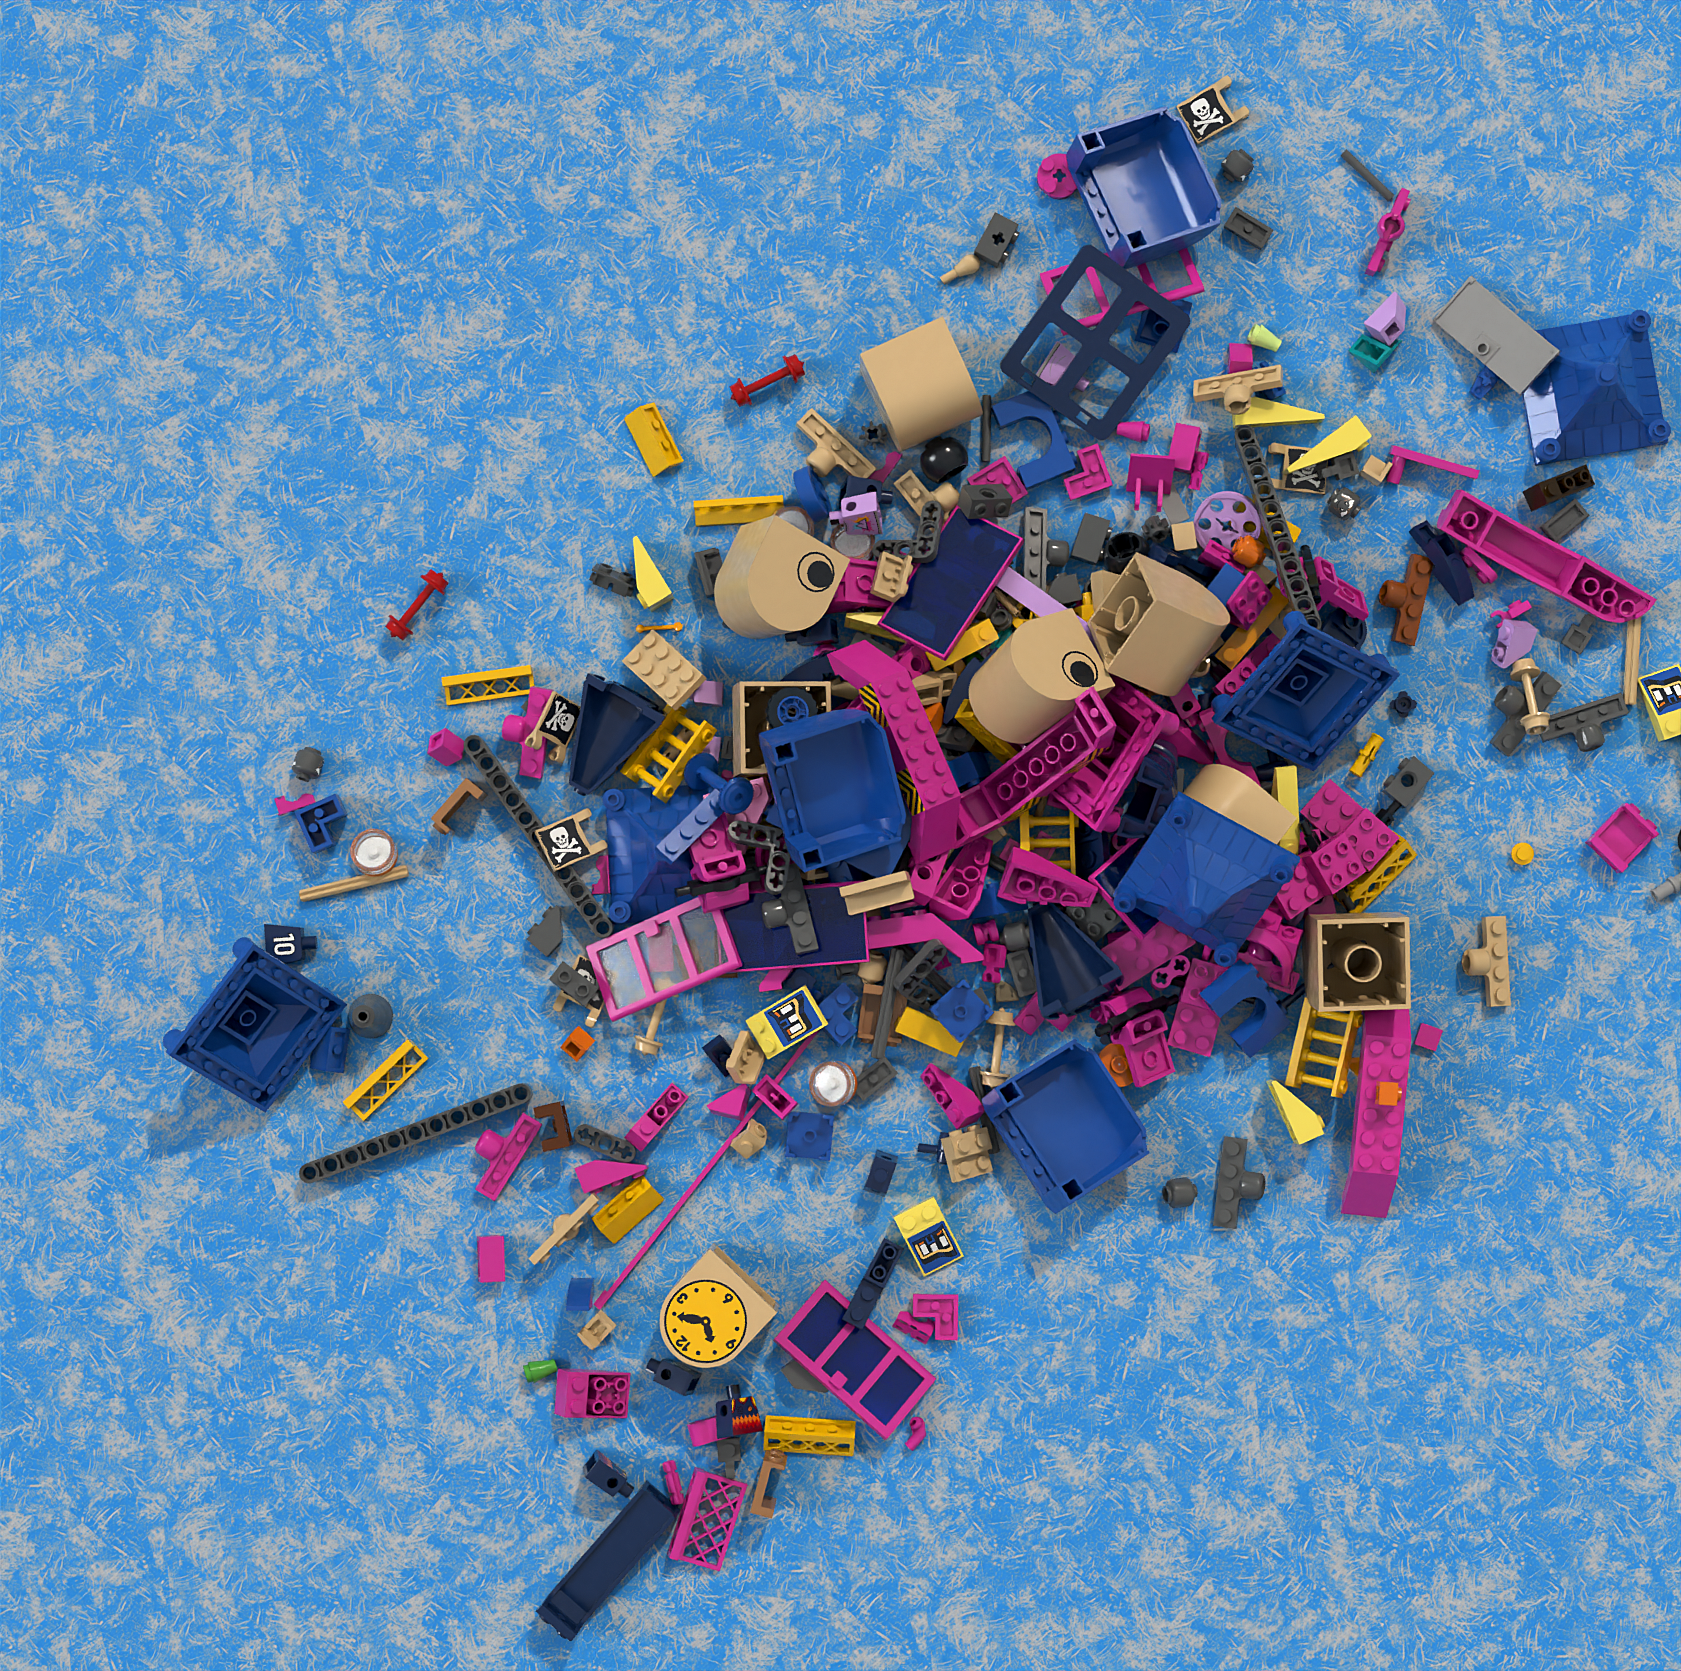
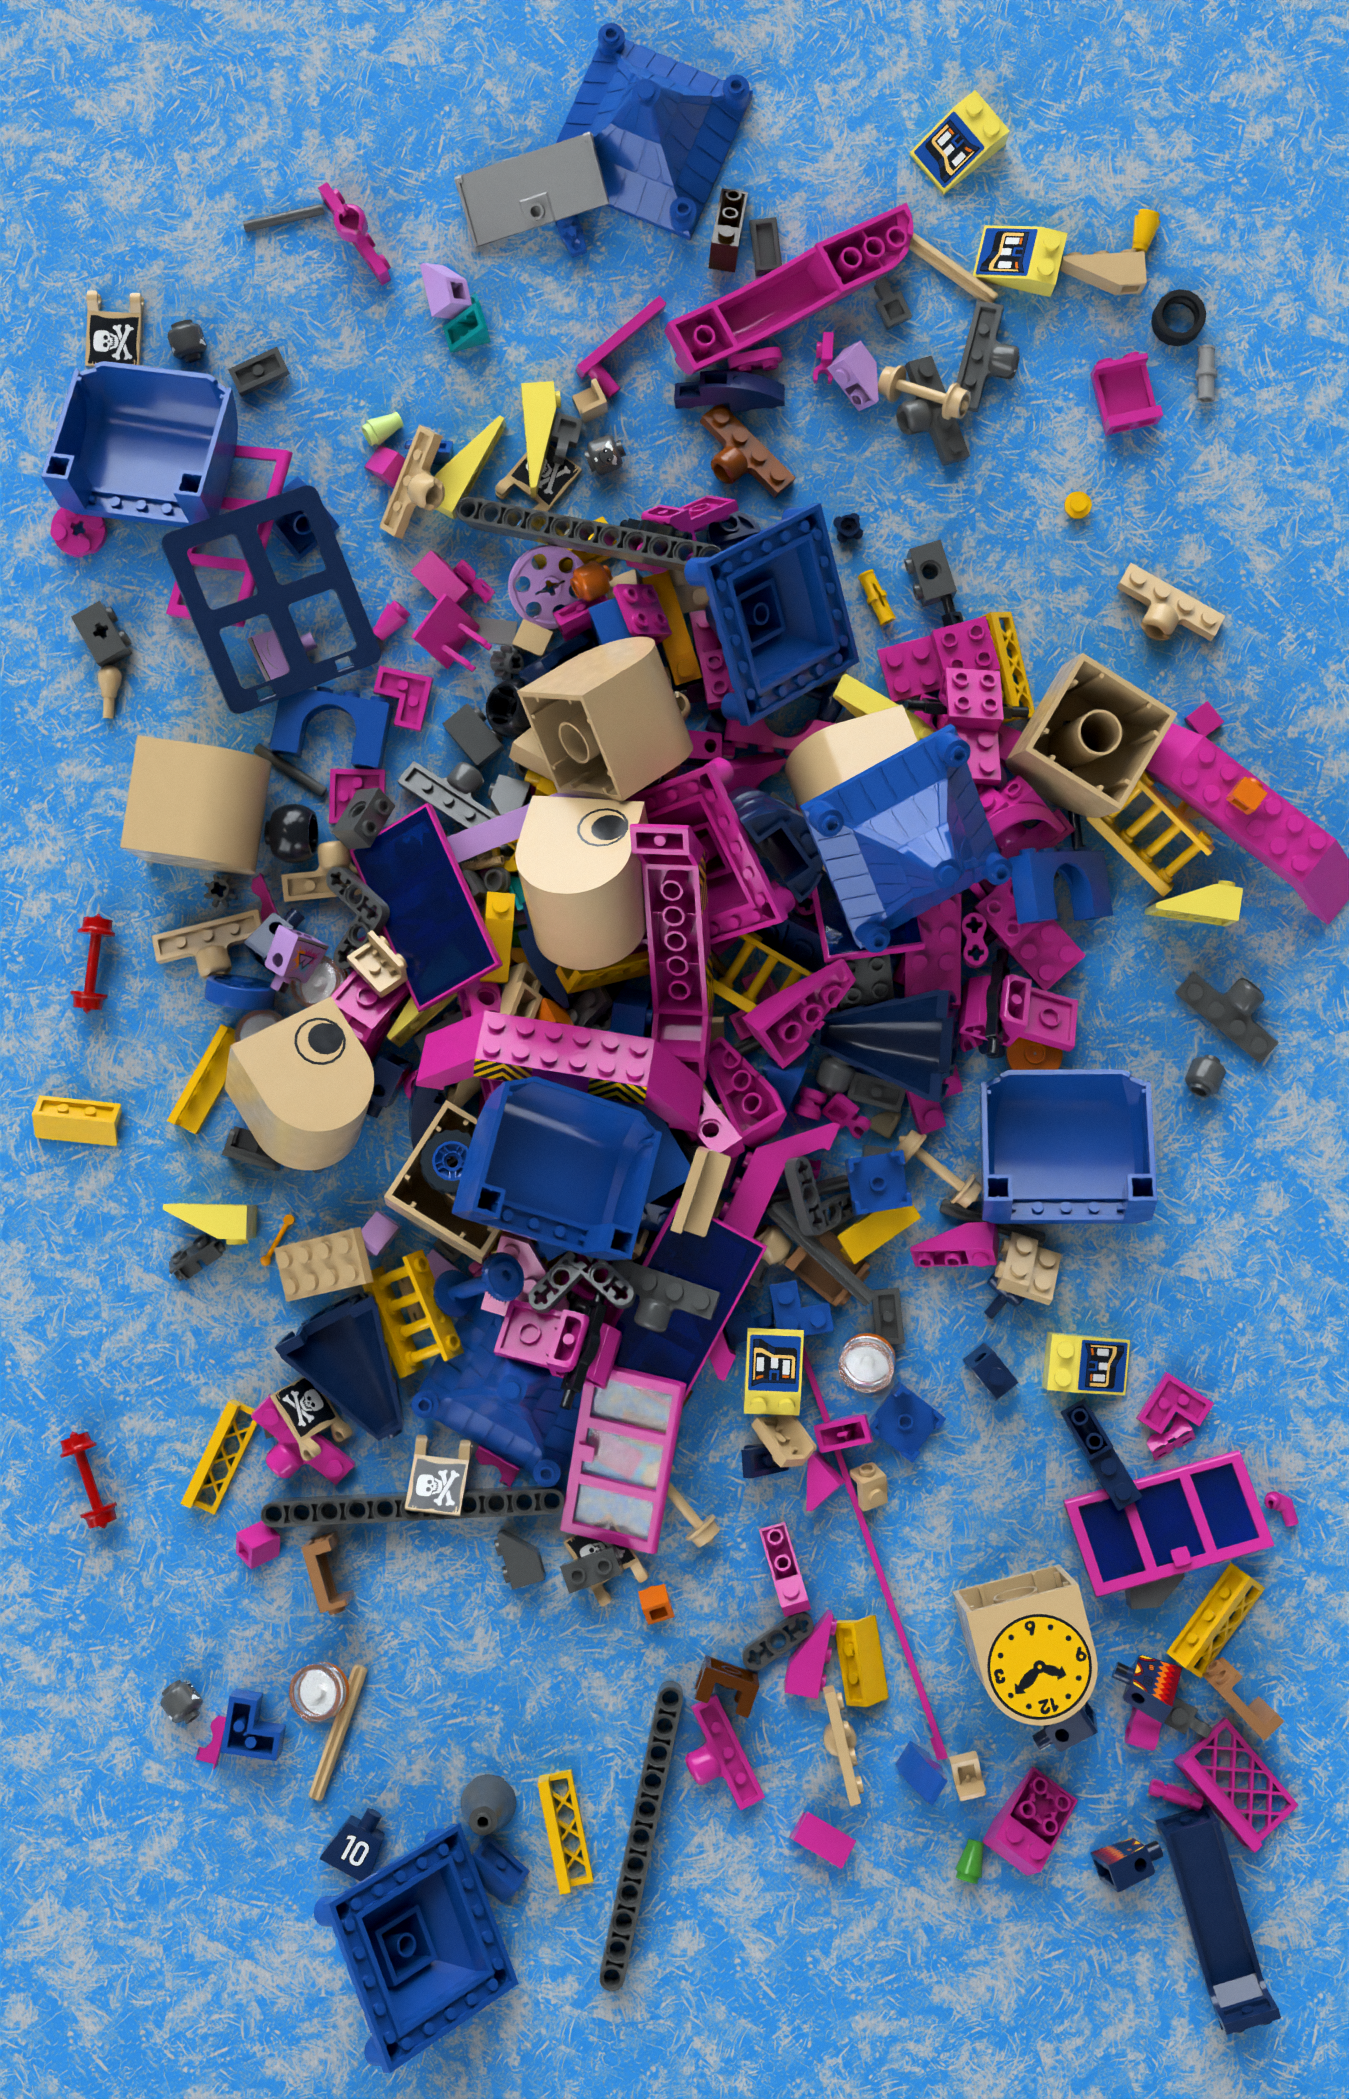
camera: 60 degrees left, 0 degrees up
(690, 828) = (507, 1348): plate -> none

